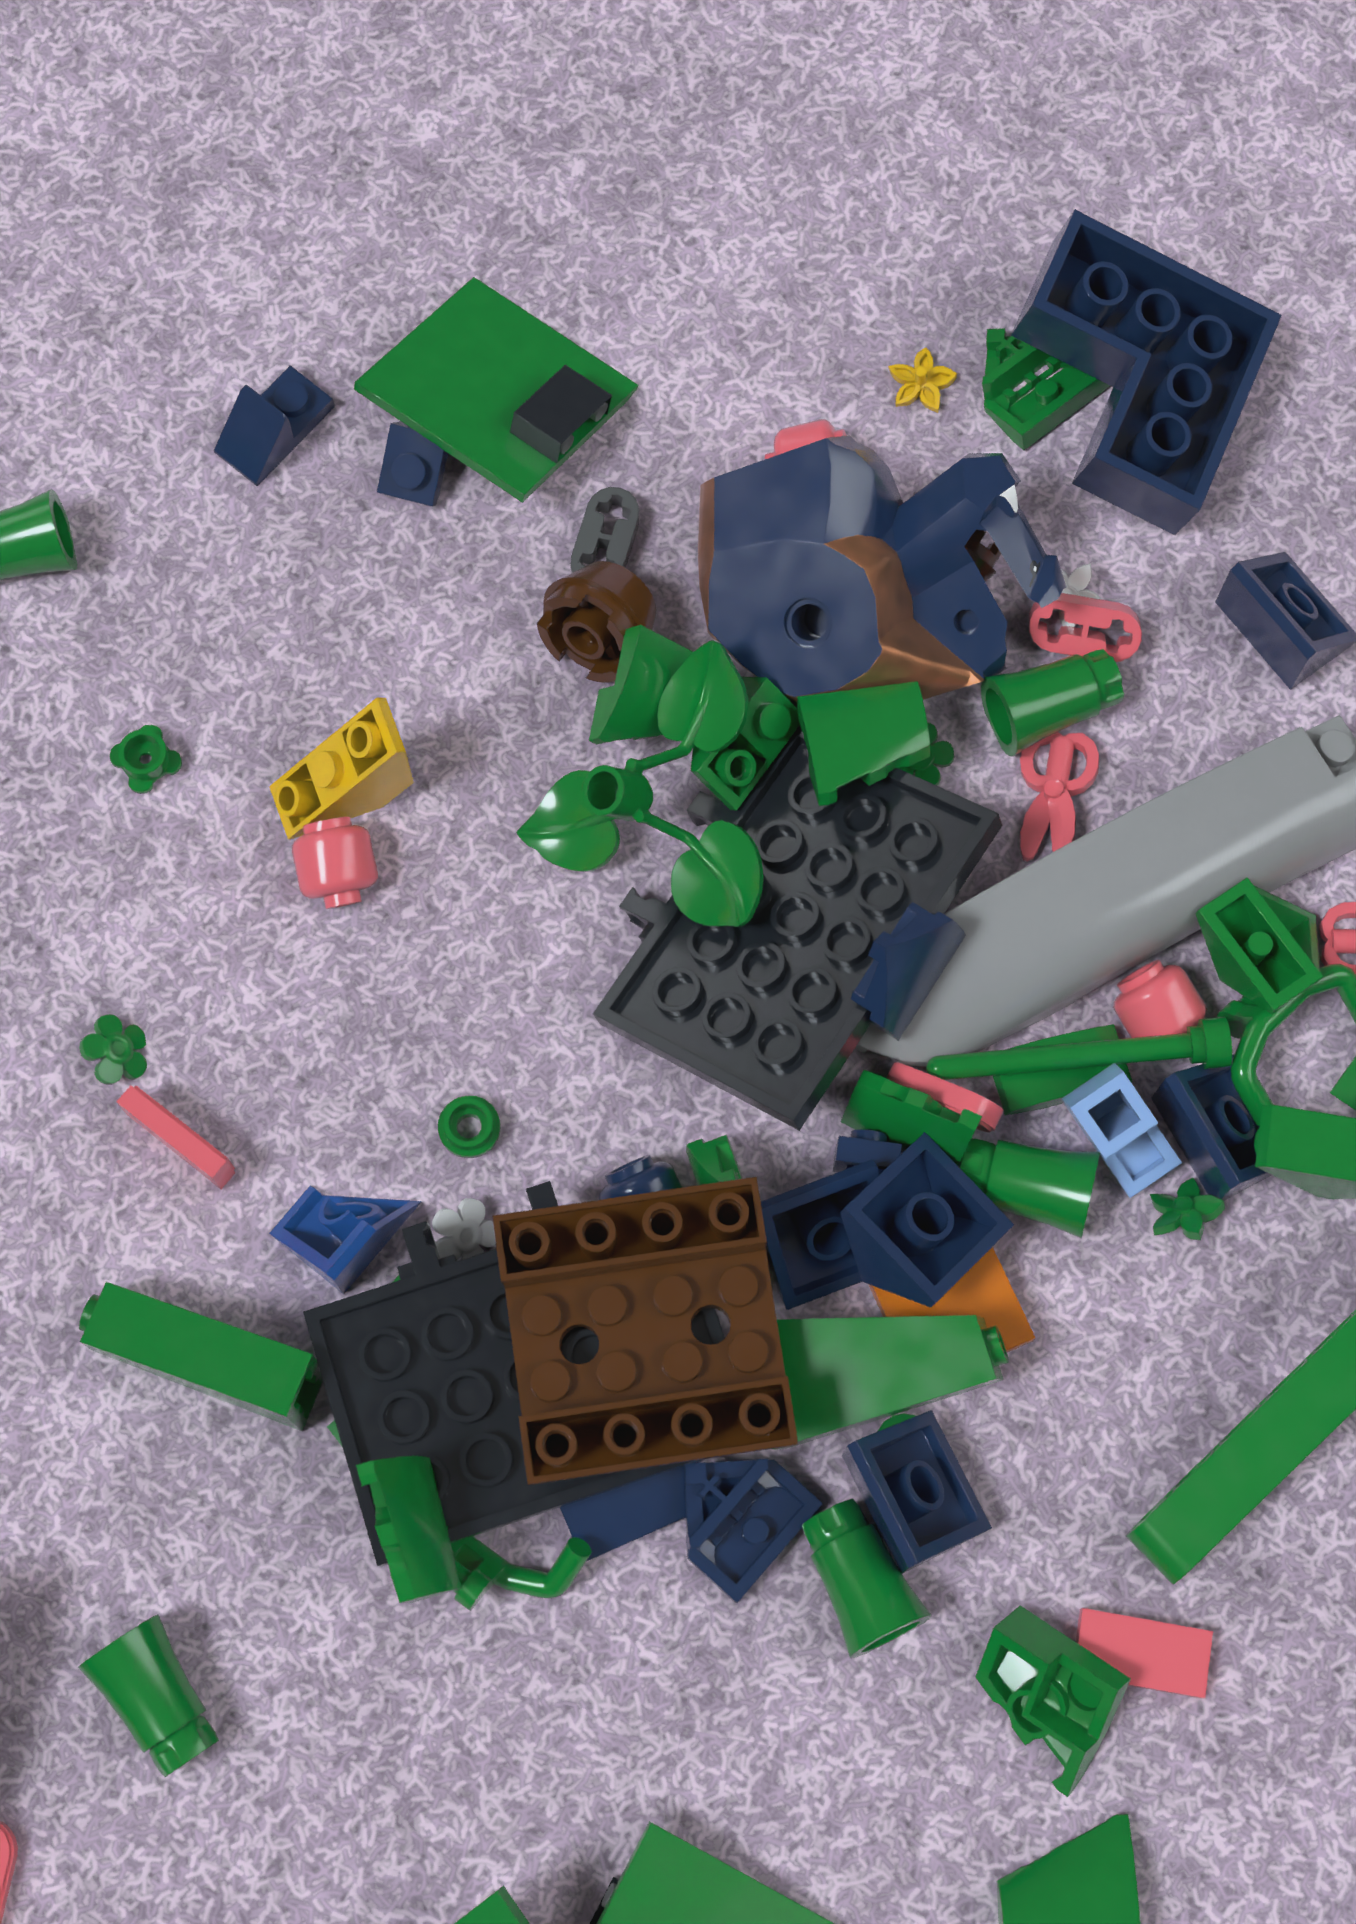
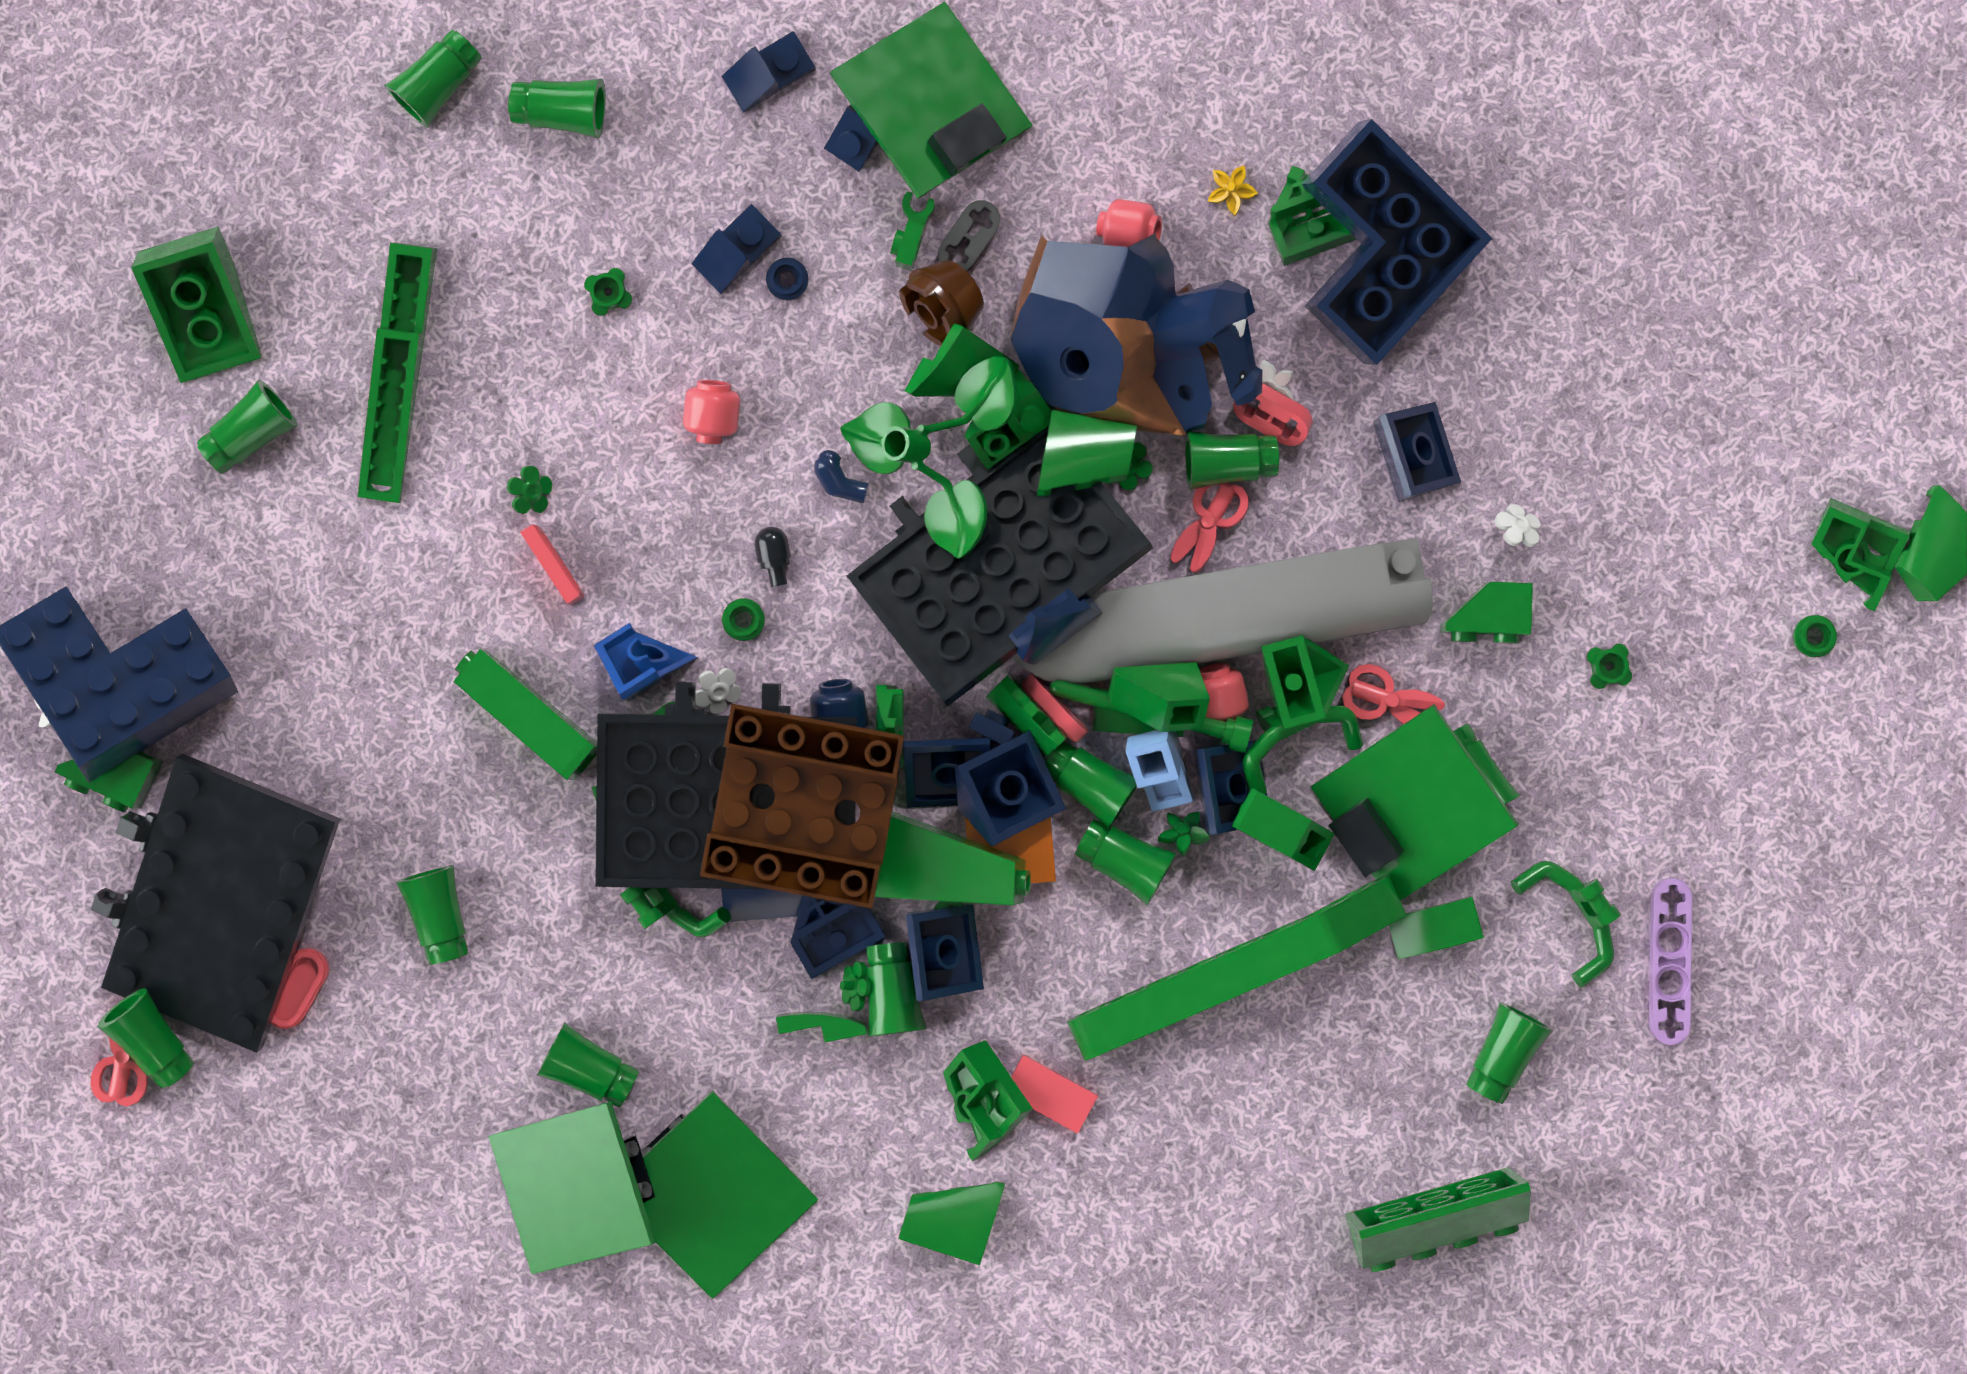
camera: 15 degrees right, 15 degrees up
(299, 651) = (735, 249): none -> dark blue slope
(347, 773) = (734, 354): yellow slope -> none
(378, 650) = (787, 265): none -> dark blue plate
(411, 1526) = (622, 874): green slope -> none
(450, 1853) = (587, 1067): none -> green plant
(481, 1024) = (773, 553): none -> black cylinder
(527, 568) = (907, 242): none -> green plate
(532, 901) = (834, 480): none -> dark blue arm
(793, 1660) = (833, 1025): none -> green slope
(805, 1589) = (855, 986): none -> green plant
(1088, 1020) = (1161, 695): none -> green slope
(1121, 1273) = (1125, 859): none -> green plant

